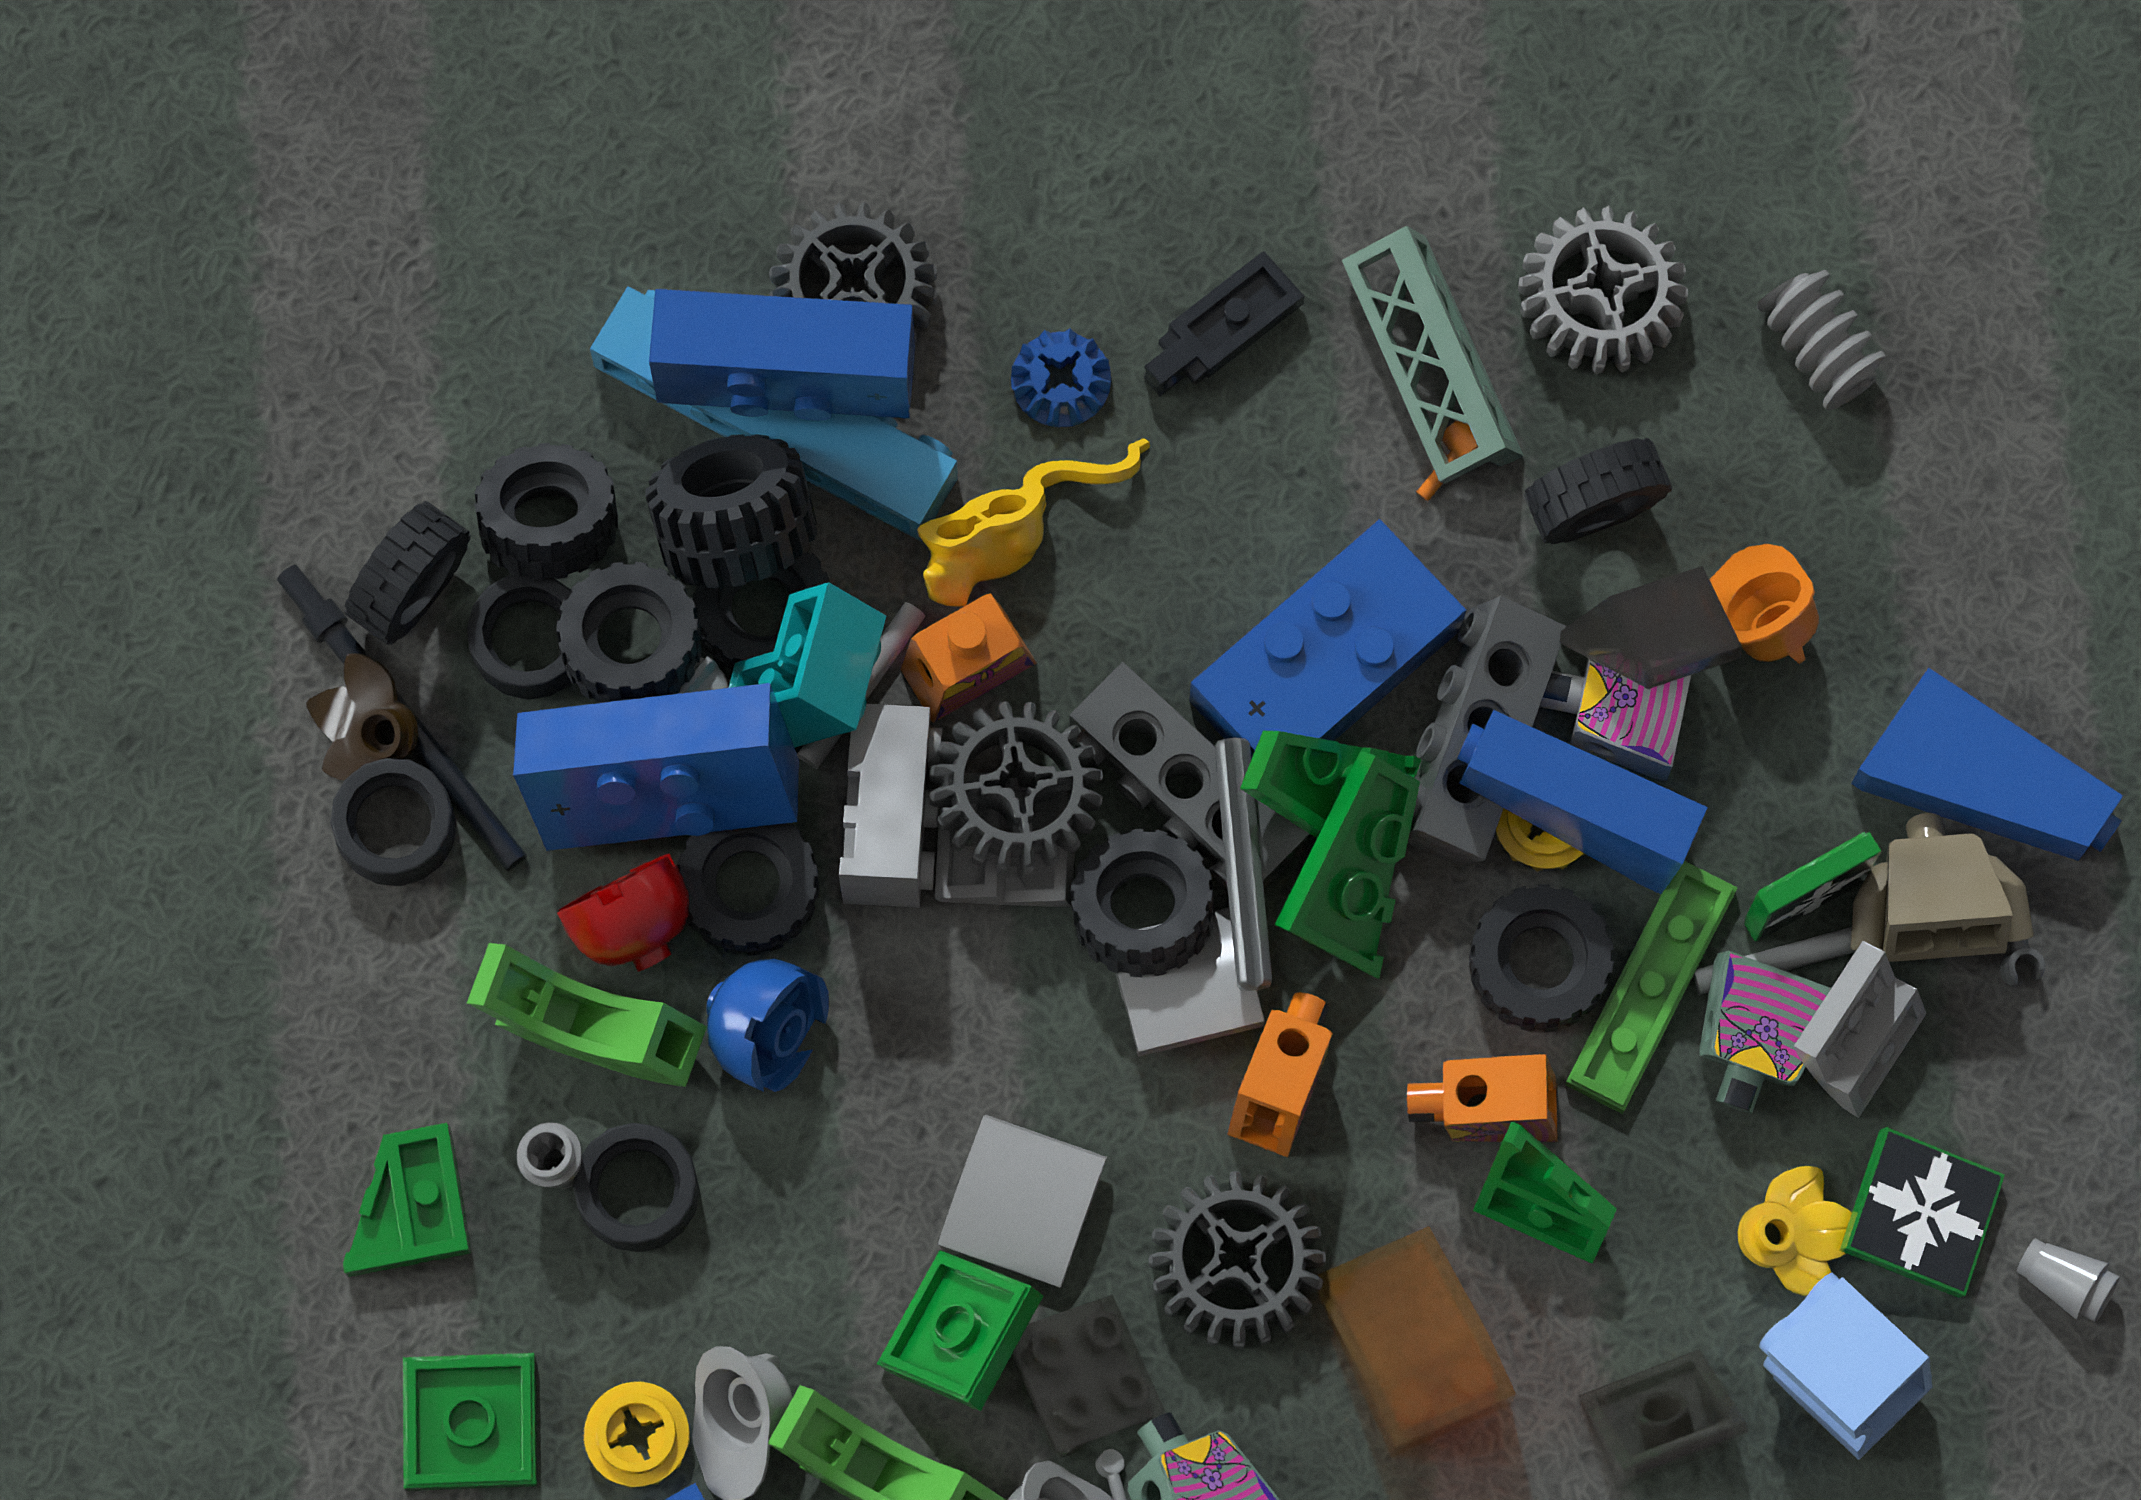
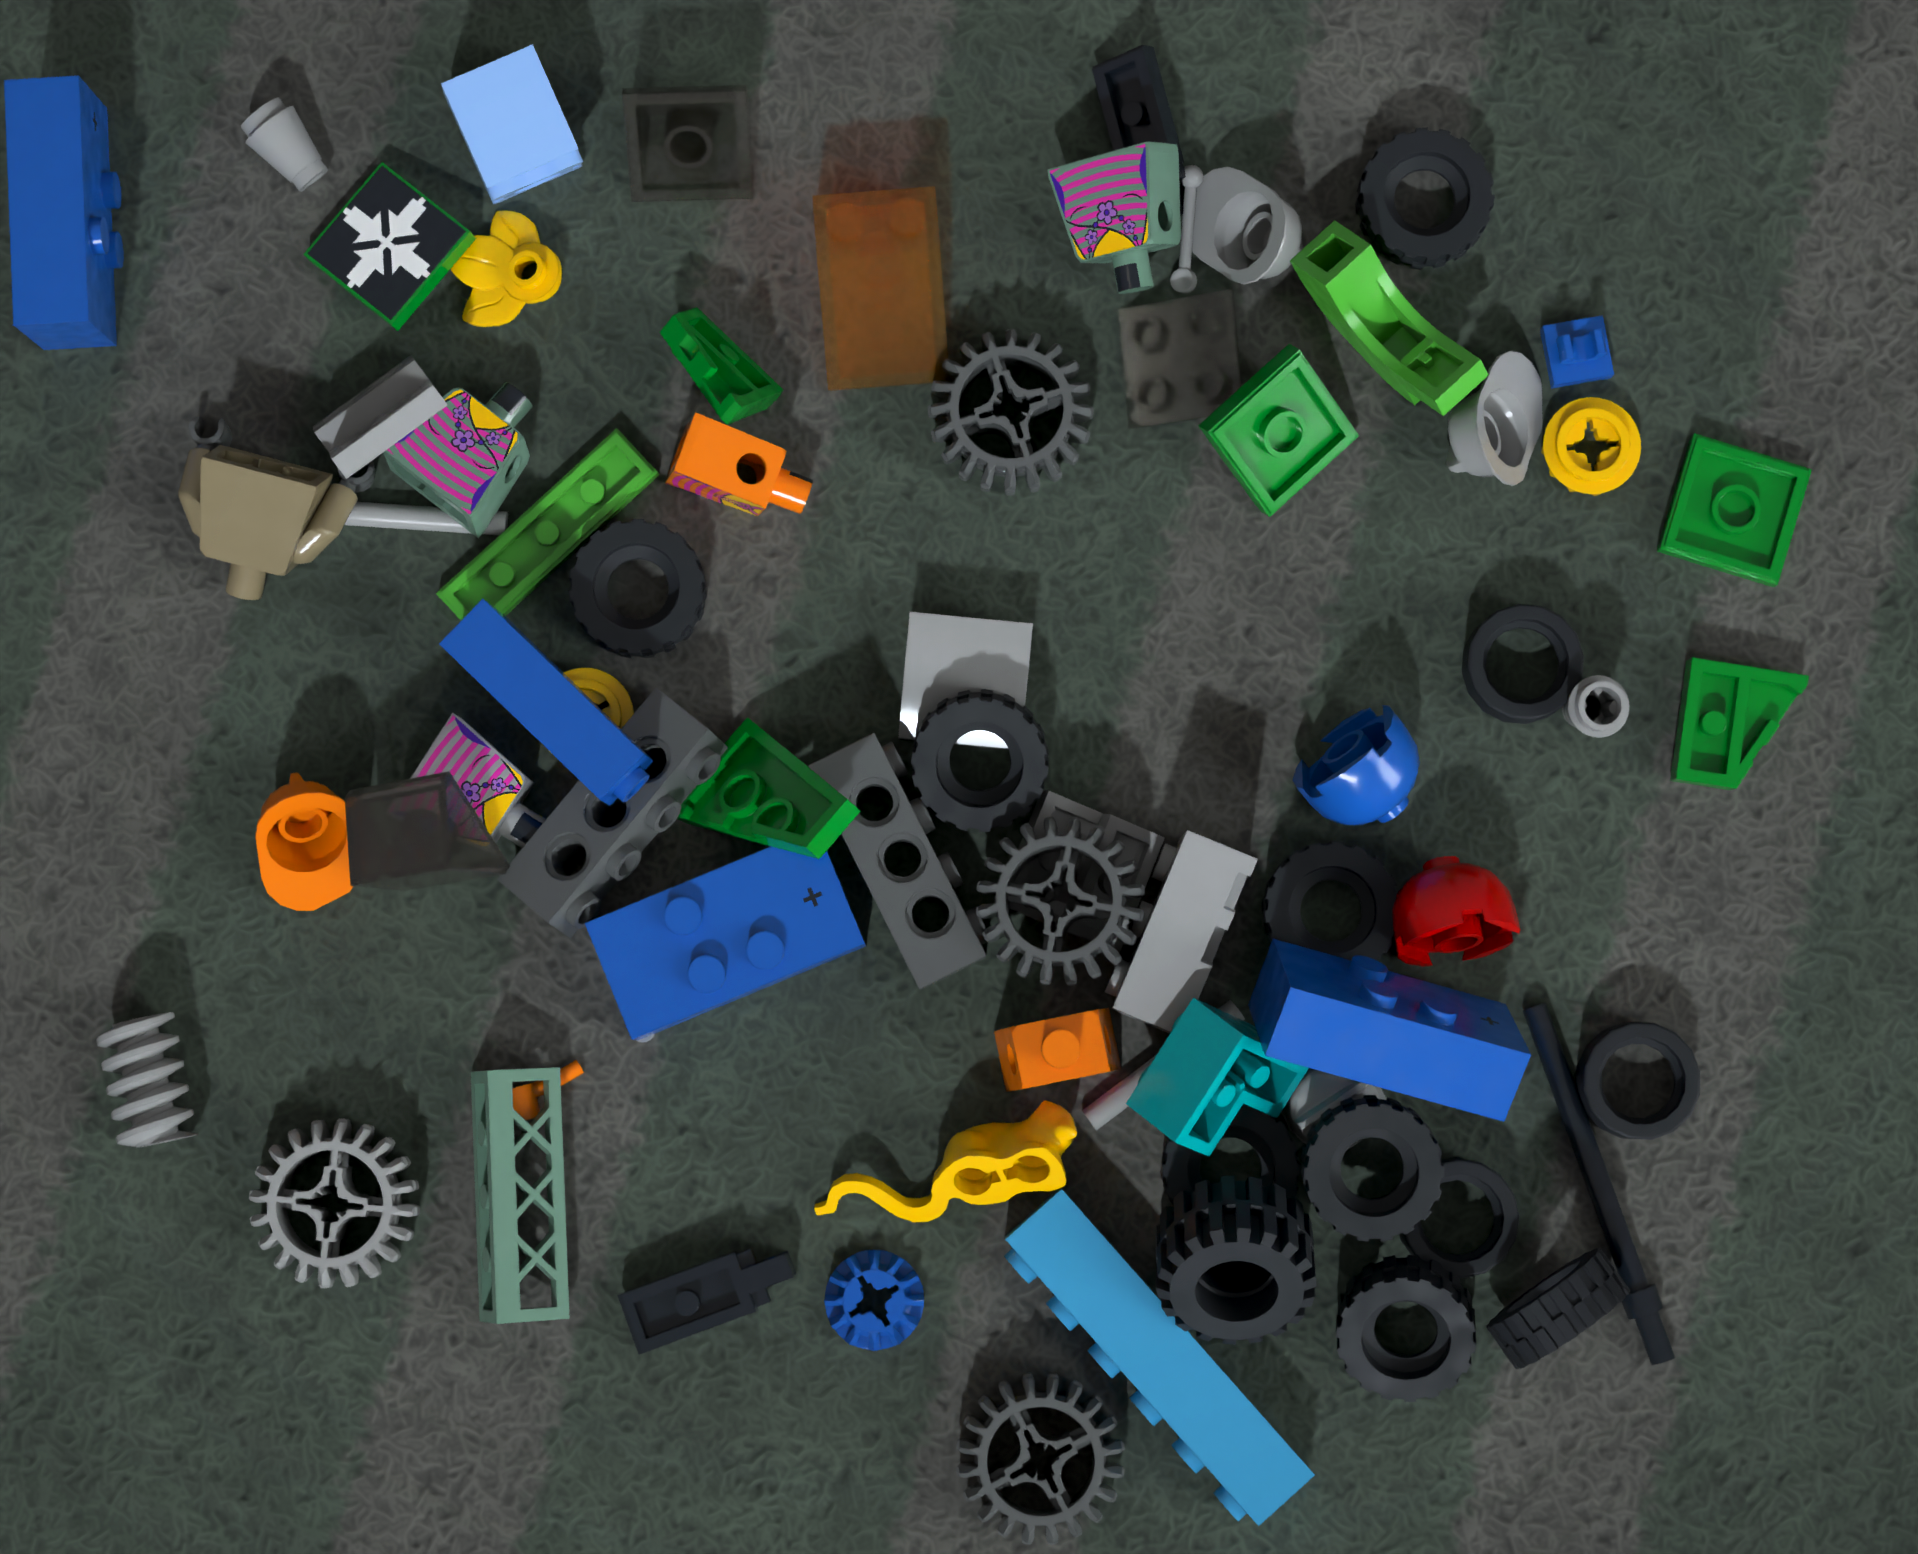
camera: 160 degrees left, 10 degrees up
(358, 715) = (1637, 1192): dark brown plate -> none
(585, 1022) = (1520, 827): bright green arch -> none
(782, 354) = (1142, 1388): blue brick -> none
(1022, 1200) = (1181, 533): light grey slope -> none
(1243, 867) = (879, 751): dark grey axle -> none
(1282, 1075) = (930, 542): orange torso -> none
(1350, 870) = (784, 714): green wing -> none
(1598, 490) = (418, 996): black tyre -> none
(1811, 886) = (370, 557): green tile -> none
(1986, 772) = (174, 624): blue slope -> none

